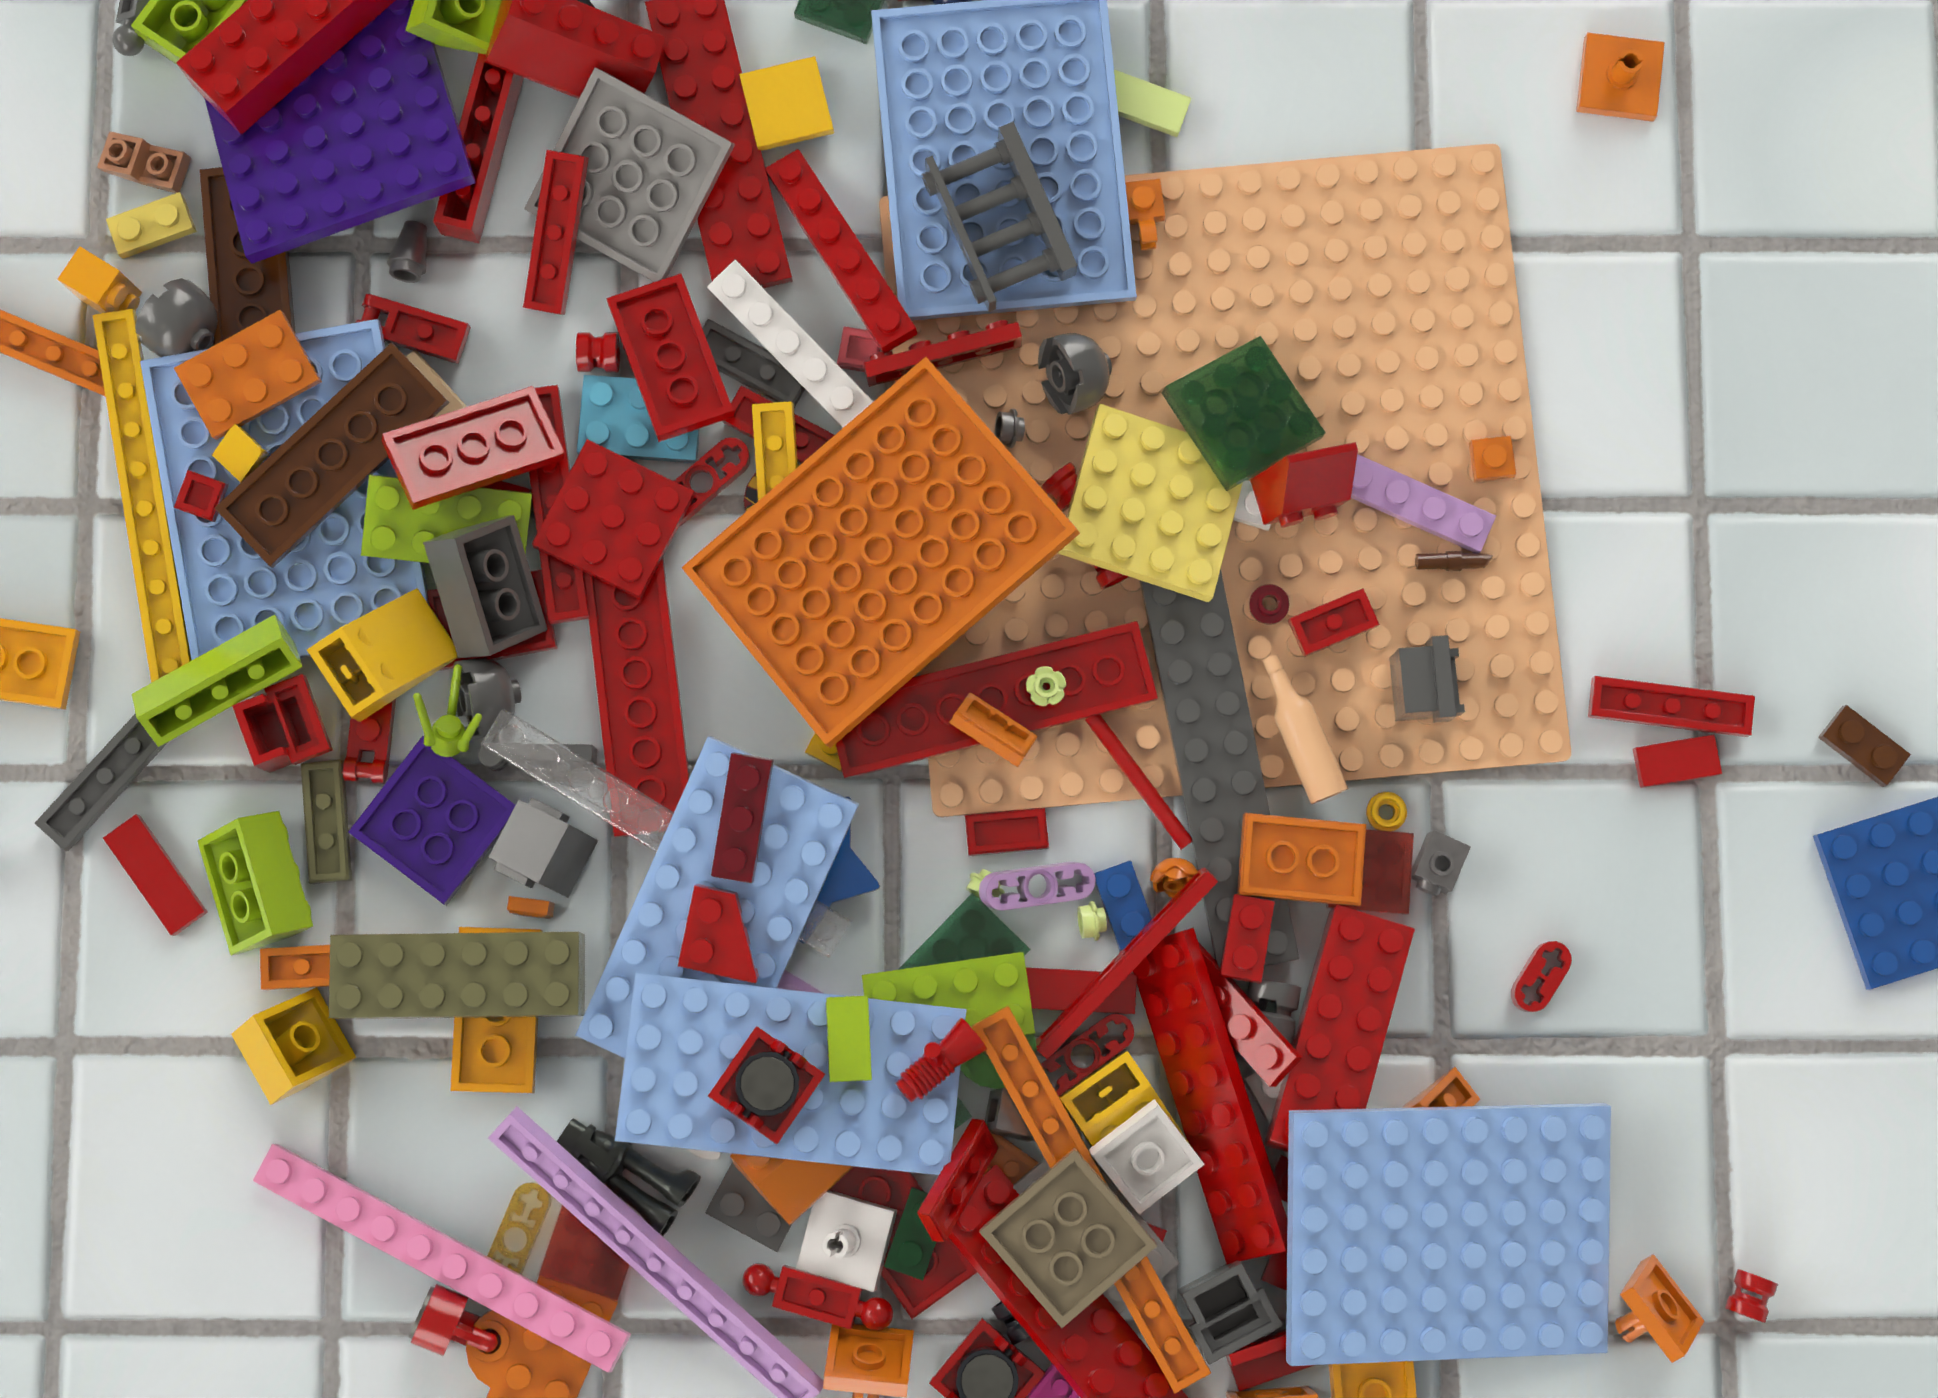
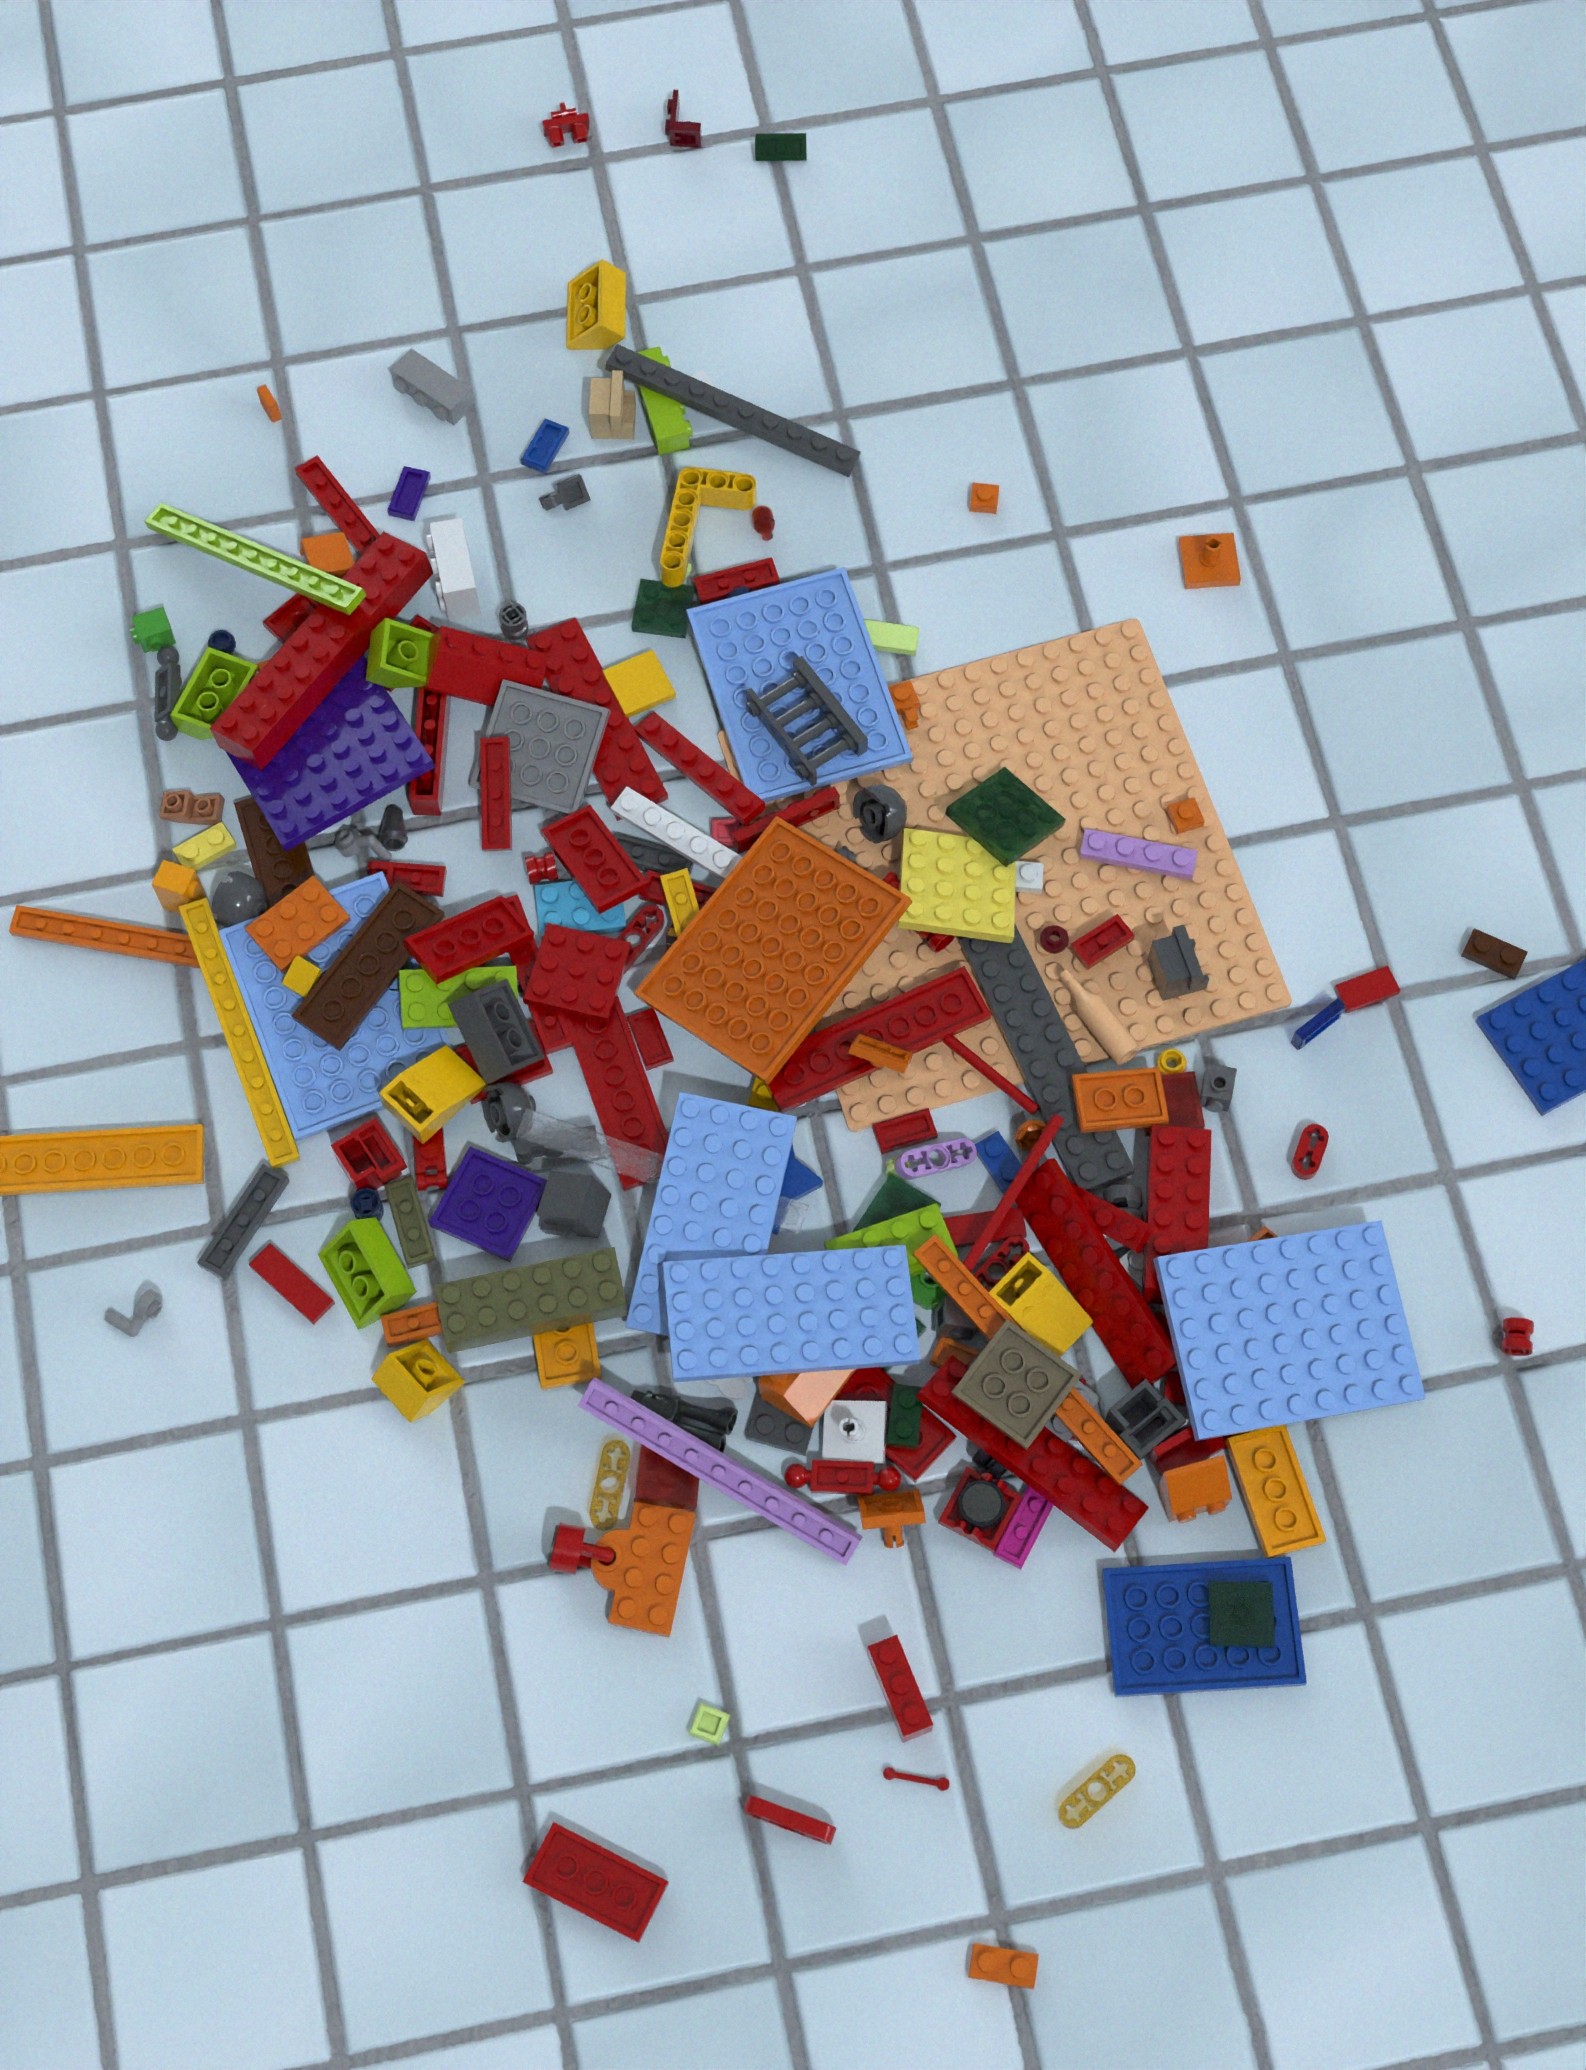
camera: 10 degrees left, 15 degrees down
(200, 495) = (278, 1012): red tile -> none
(216, 680) = (315, 1132): lime brick -> none
(264, 791) = (367, 1200): none -> dark blue wheel
(348, 259) = (351, 841): none -> light grey plate
(442, 1258) = (560, 1504): bright pink plate -> none
(448, 733) = (488, 1139): lime plant -> none
(530, 907) = (572, 1246): orange tile -> none
(694, 630) = (650, 1039): none -> red tile
(716, 936) = (715, 1228): red wing -> none
(742, 817) = (716, 1139): dark red plate -> none
(766, 1085) = (775, 1314): piece -> none
(848, 1038) = (826, 1275): lime tile -> none
(940, 1060) = (896, 1277): red piece -> none
(958, 1180) = (927, 1363): red tile -> none
(1046, 675) = (907, 1025): yellowish green plate -> none
(1091, 921) = (980, 1177): yellowish green plate -> none
(1146, 1156) = (1060, 1321): white plate -> none
(1247, 938) = (1094, 1159): red plate -> none
(1306, 485) = (1060, 850): red slope -> none
(1452, 560) = (1174, 887): reddish brown piece -> none
(1598, 800) = (1318, 1024): none -> clear blue tile
(1659, 1309) = (1453, 1357): orange tile -> none
(1671, 706) = (1352, 953): red plate -> none

